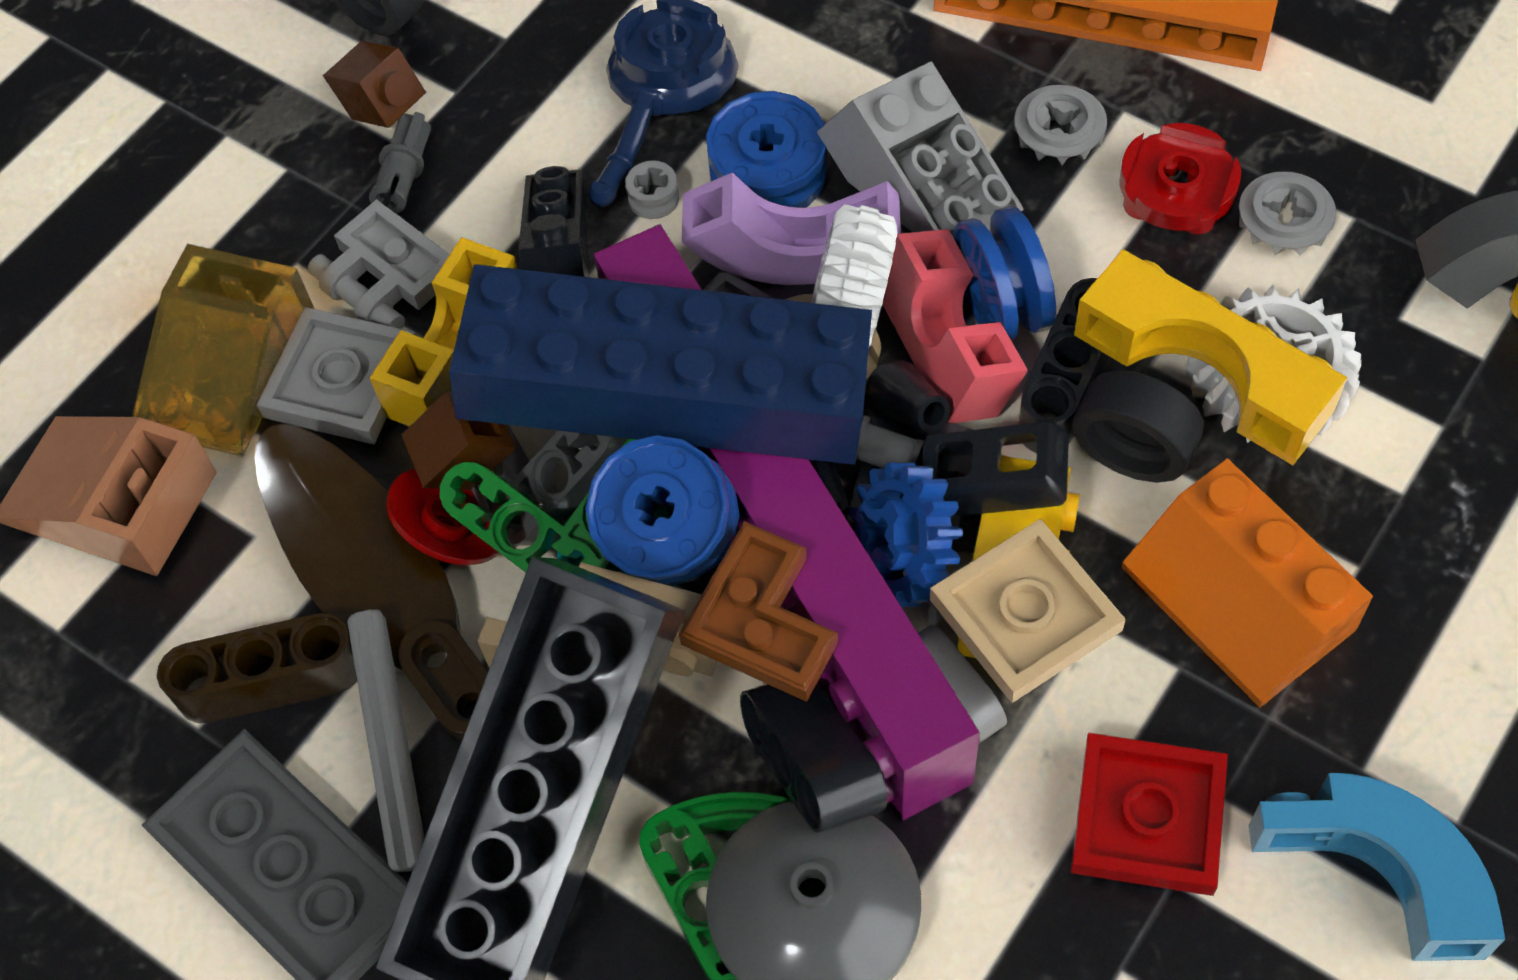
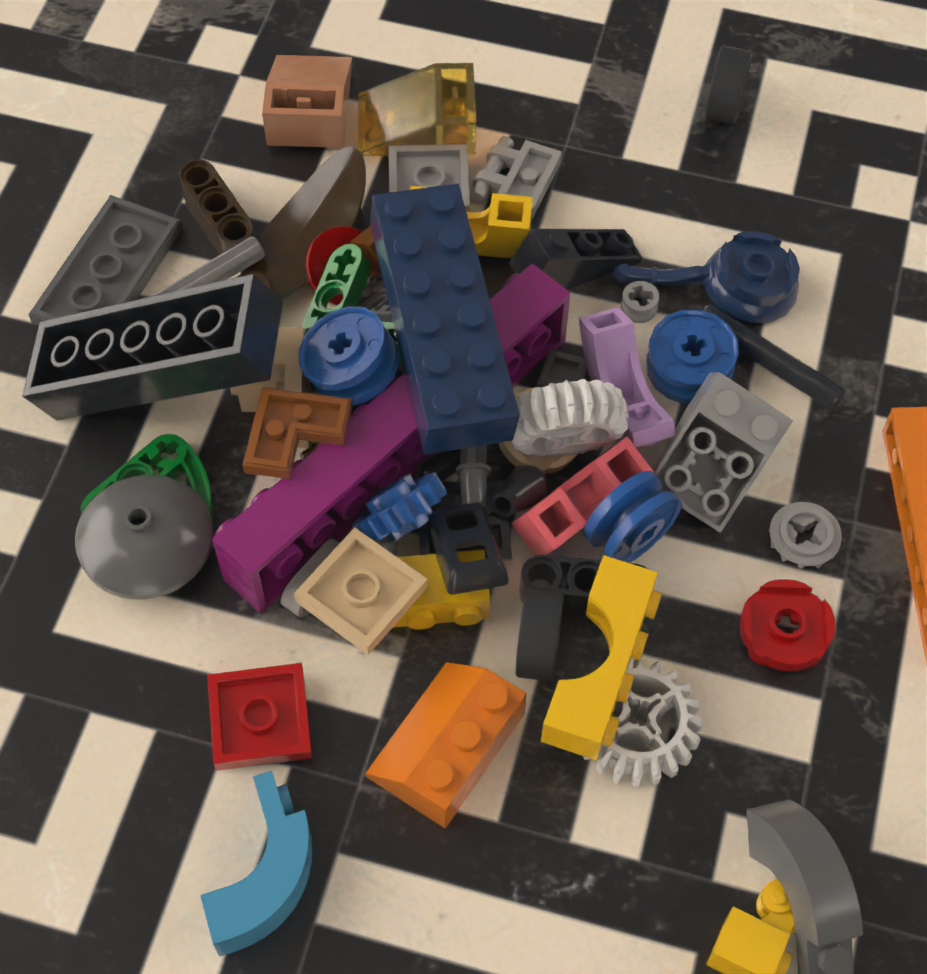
camera: 65 degrees right, 0 degrees up
(374, 83) = (649, 118): reddish brown brick -> none
(401, 161) = (601, 156): dark grey axle -> none
(809, 69) = (783, 363): none -> black axle
(814, 756) = (215, 502): black beam -> none
(1311, 206) = (800, 694): light grey gear -> none

